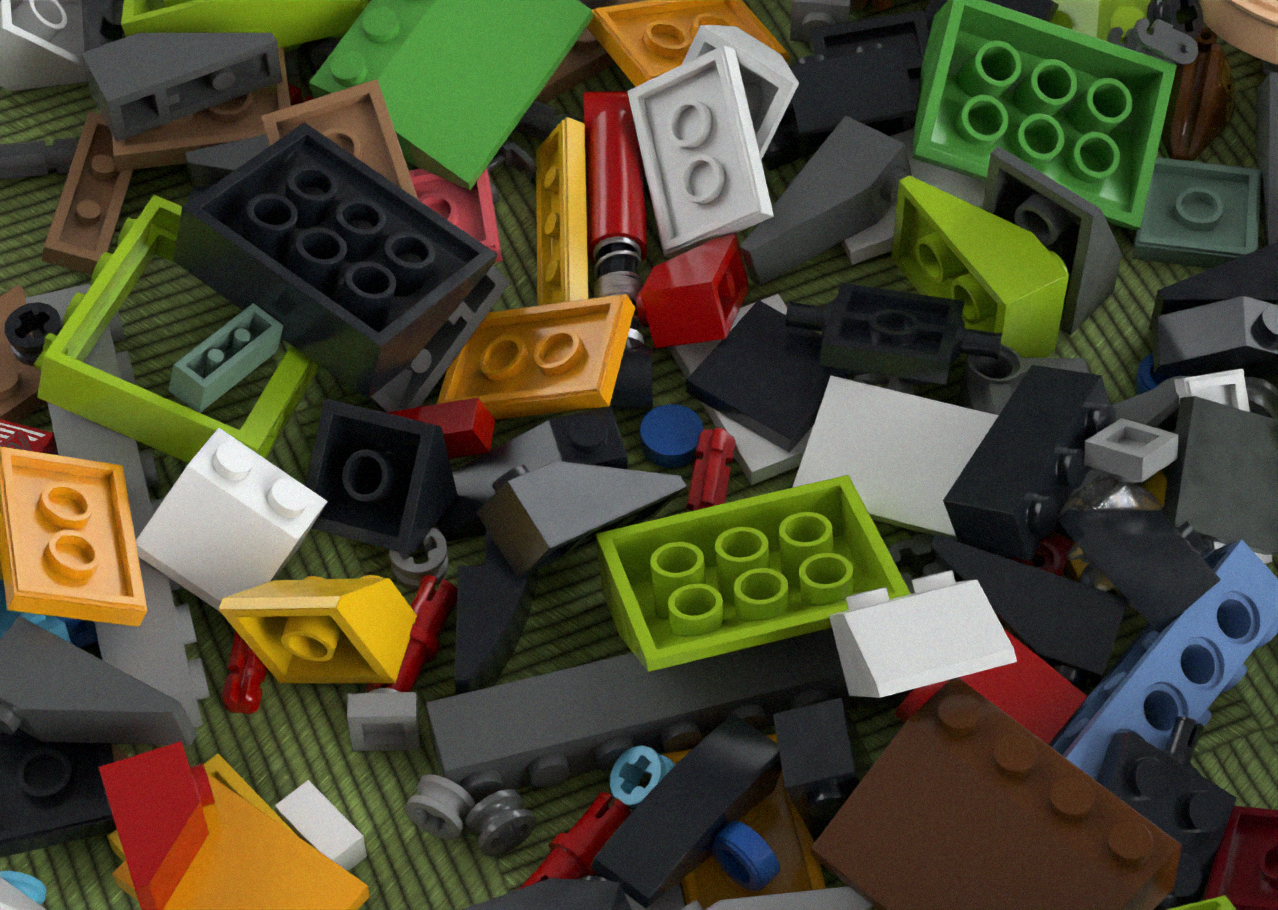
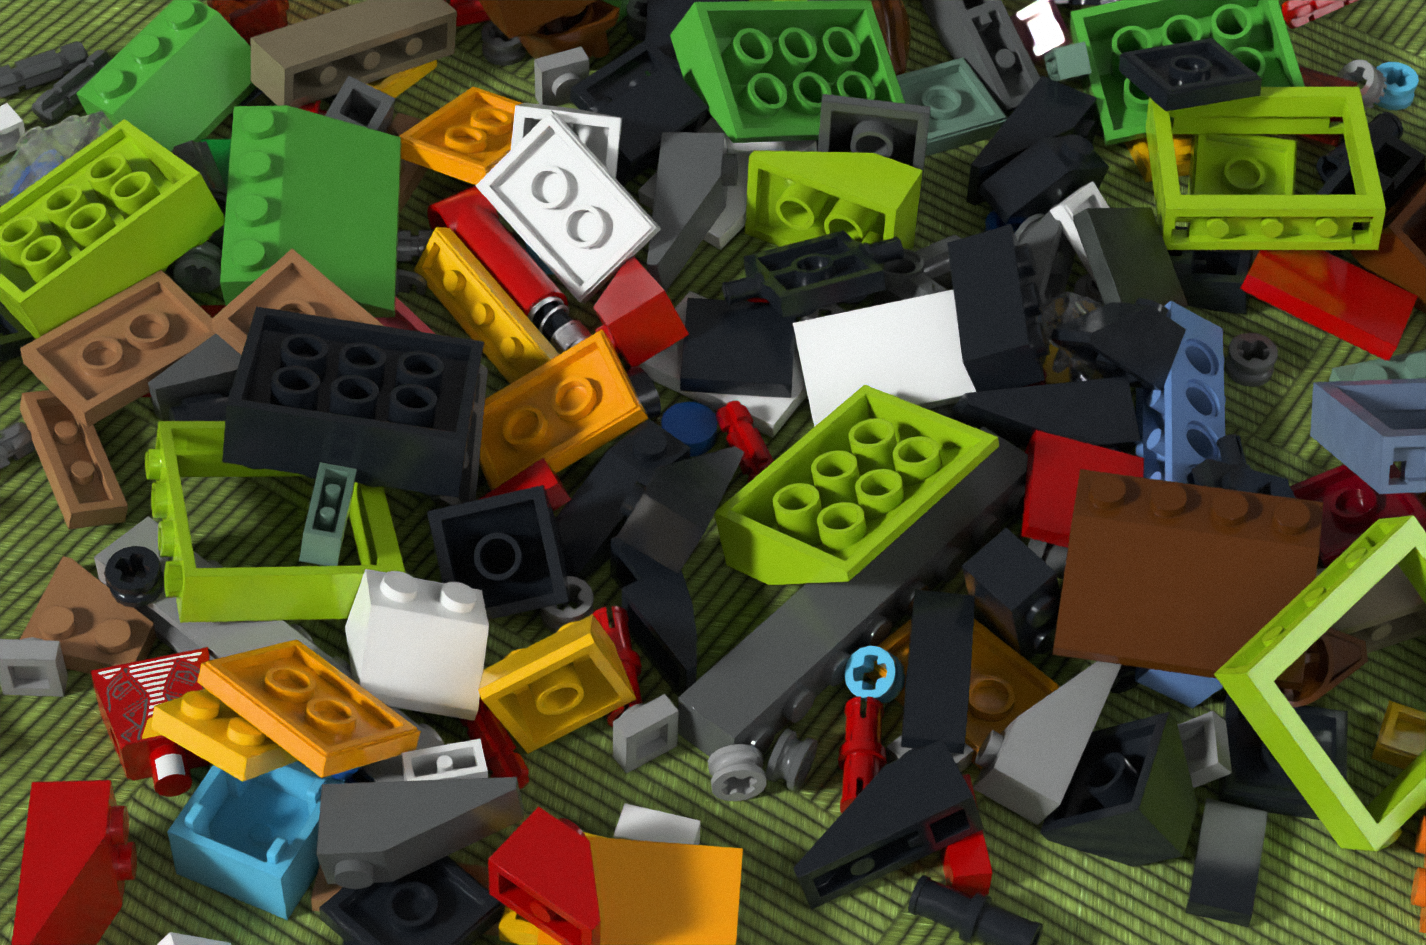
camera: 35 degrees left, 5 degrees down
(153, 660) = (446, 762): none -> white piece
(173, 75) = (95, 325): dark grey slope -> none
(745, 856) = (998, 685): blue tile -> none
(918, 637) = (1034, 457): white slope -> none
(1131, 450) = (1066, 268): light grey plate -> none

